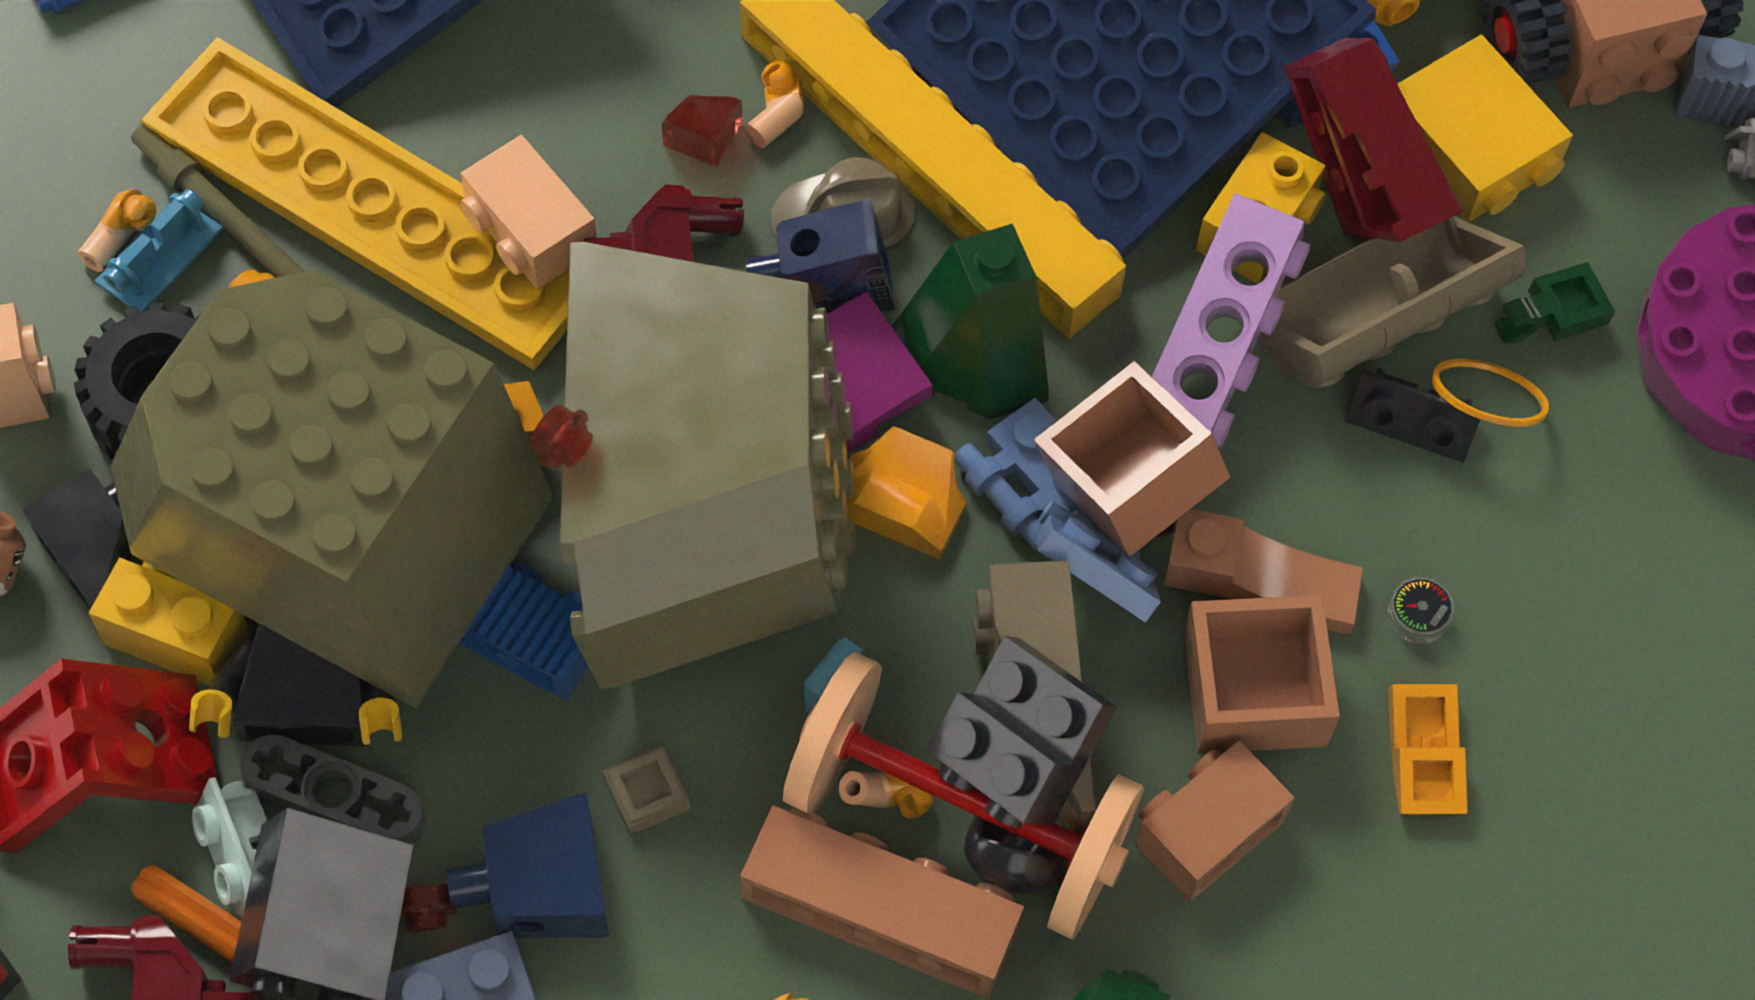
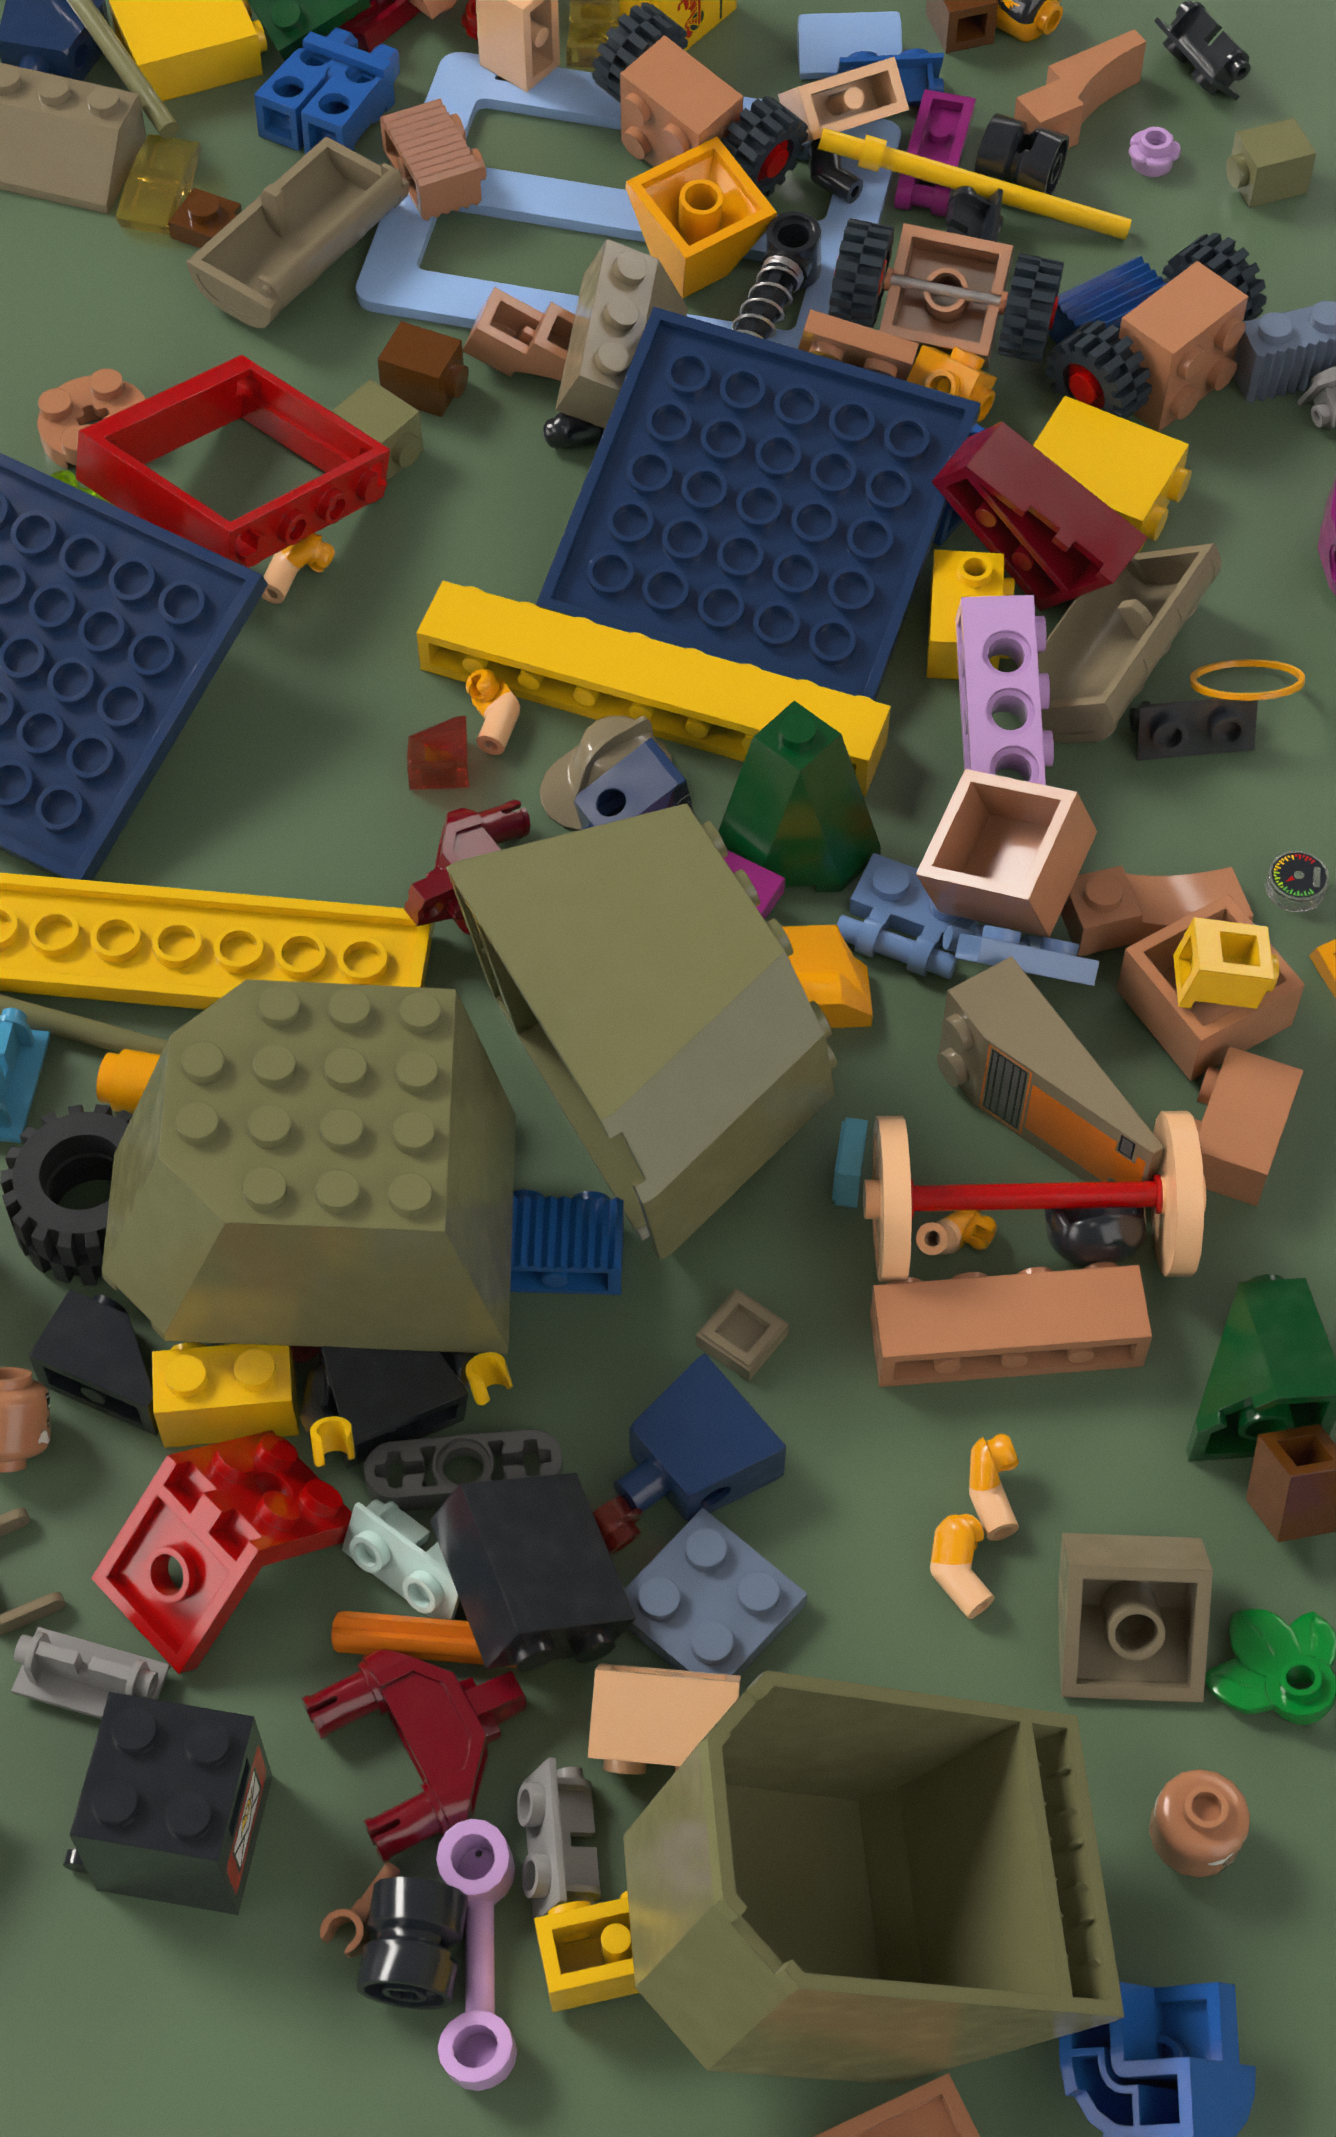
camera: 25 degrees left, 5 degrees down
(525, 211) = (340, 888): light nougat brick -> none
(561, 437) = (552, 1027): clear red plate -> none
(1021, 735) = (1065, 1114): plate -> none
(1266, 663) = (1224, 964): none -> yellow brick
(1563, 301) = (1255, 583): dark green plate -> none

